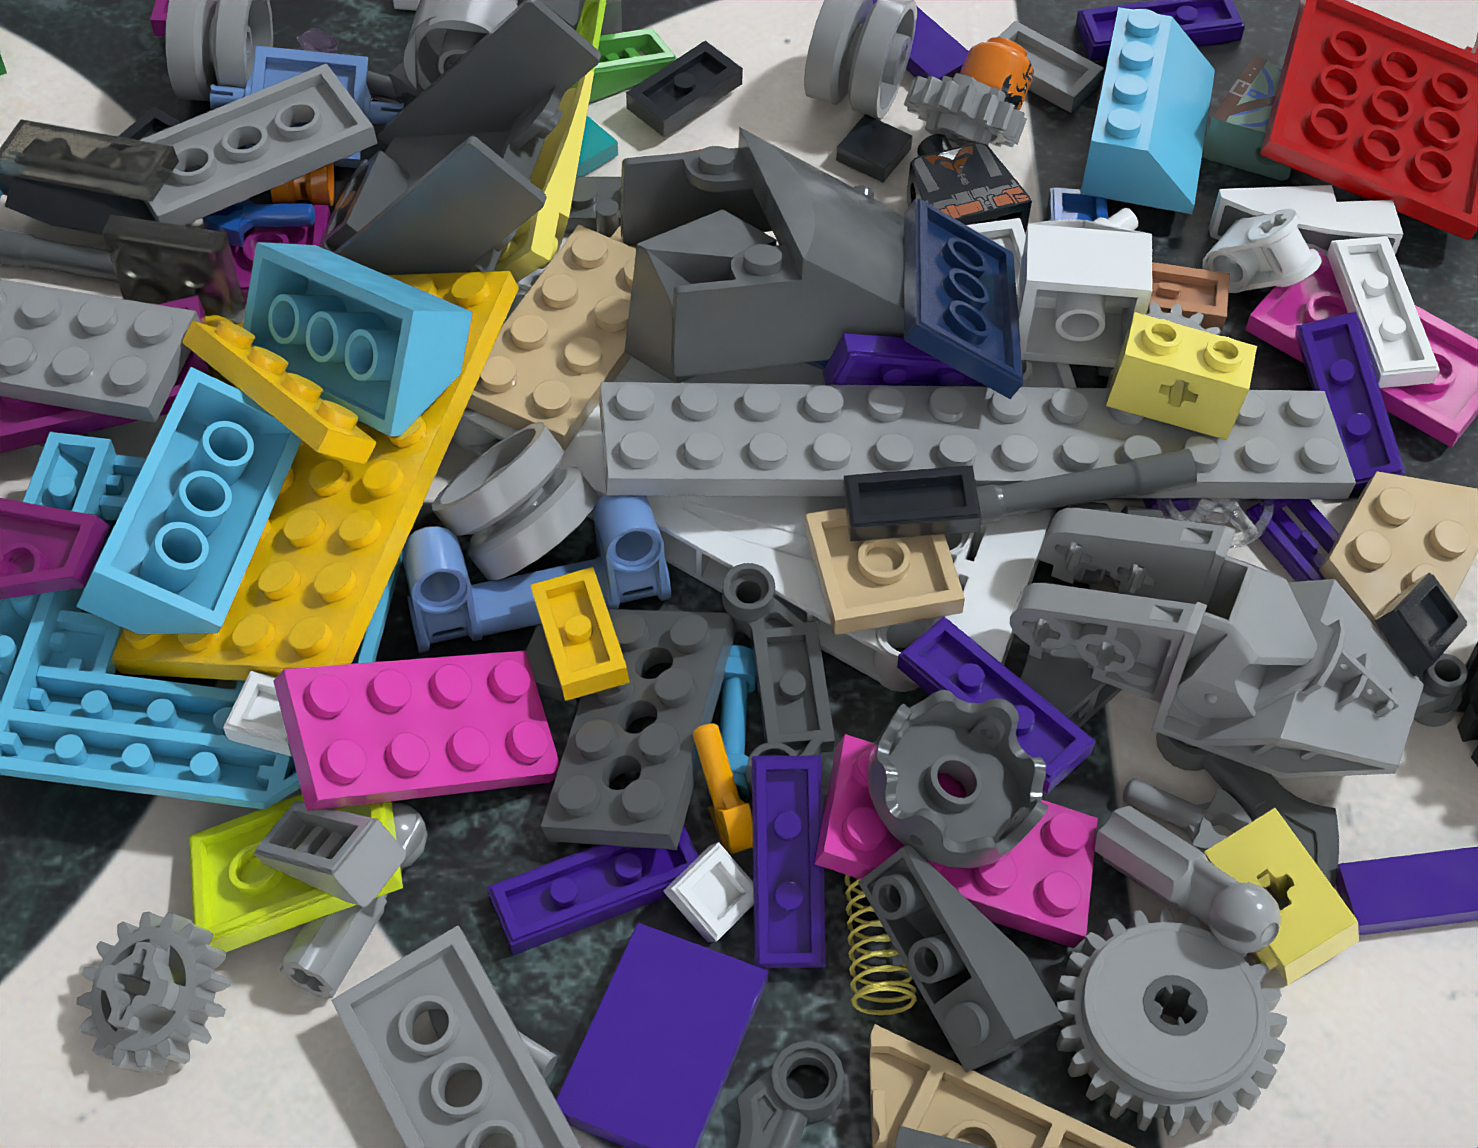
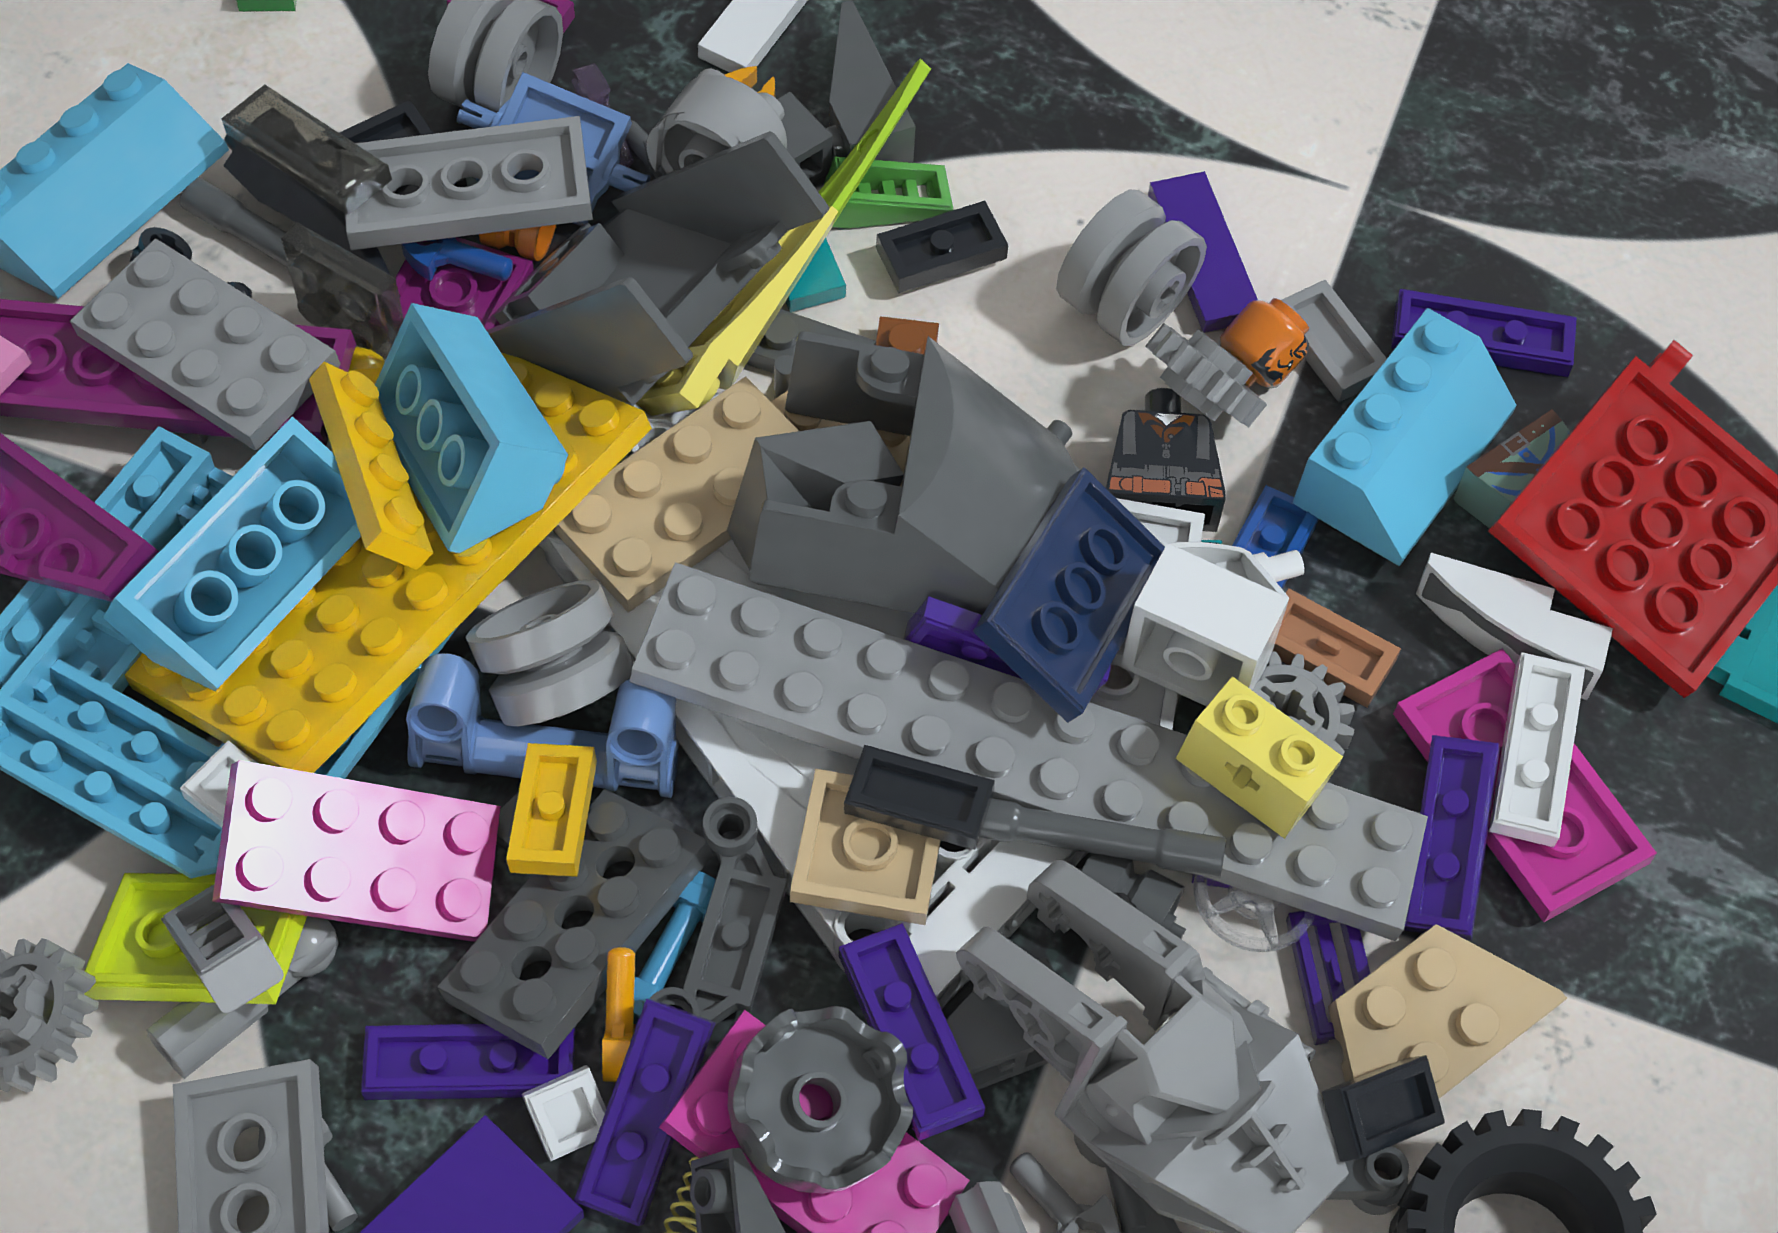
camera: 20 degrees right, 5 degrees up
(874, 148) = (1107, 377): black tile -> none
(1263, 252) = (1442, 640): white piece -> none

